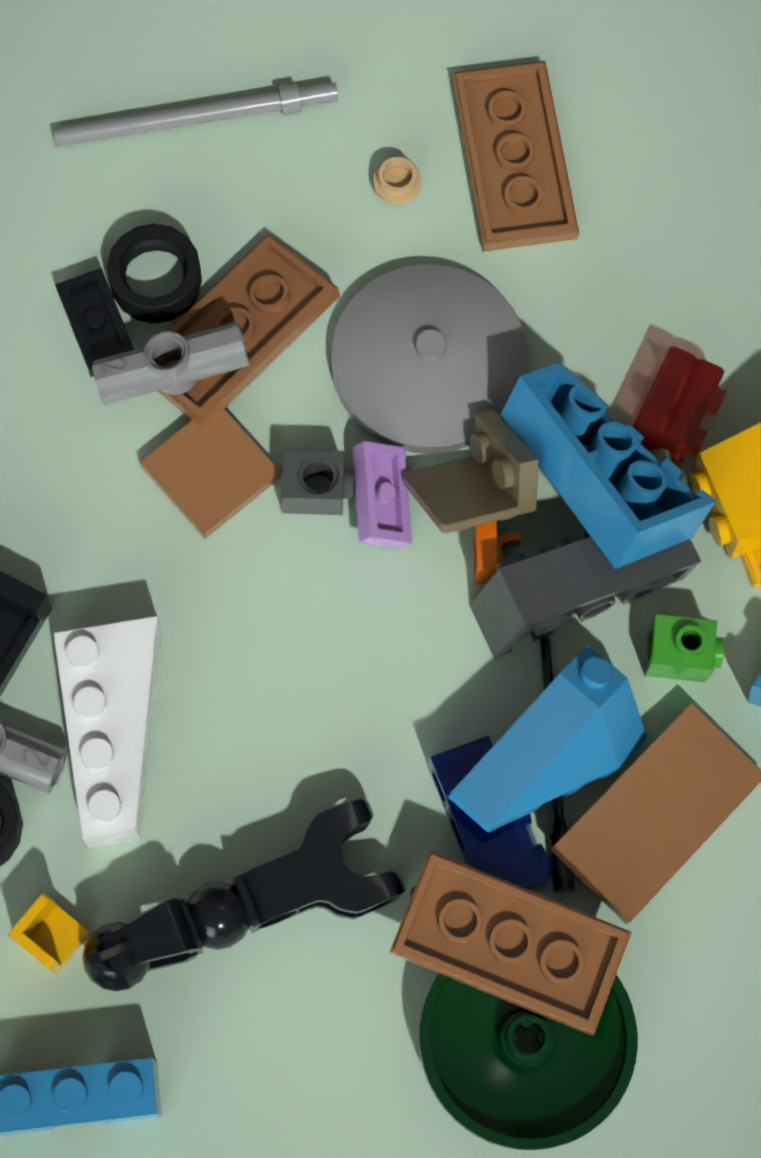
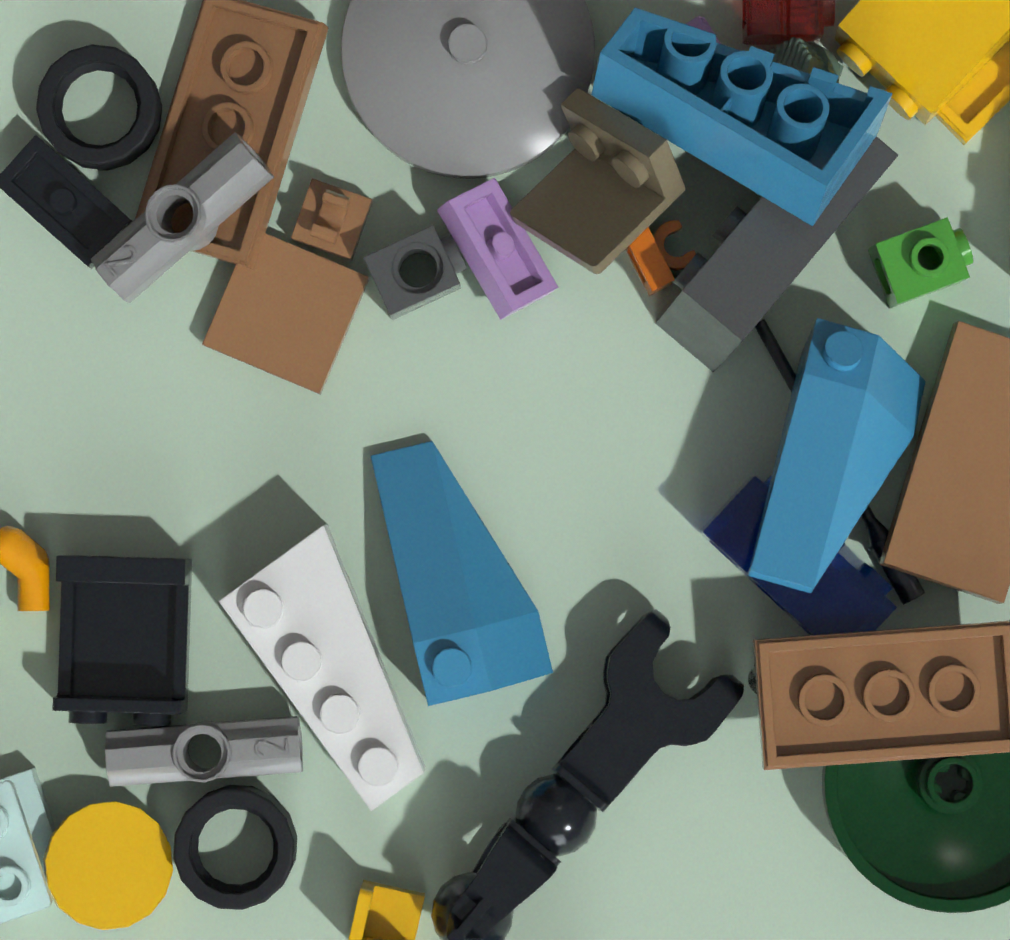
camera: 25 degrees left, 15 degrees up
(229, 724) = (460, 596): none -> dark azure wedge
(275, 423) = (331, 219): none -> medium nougat tile

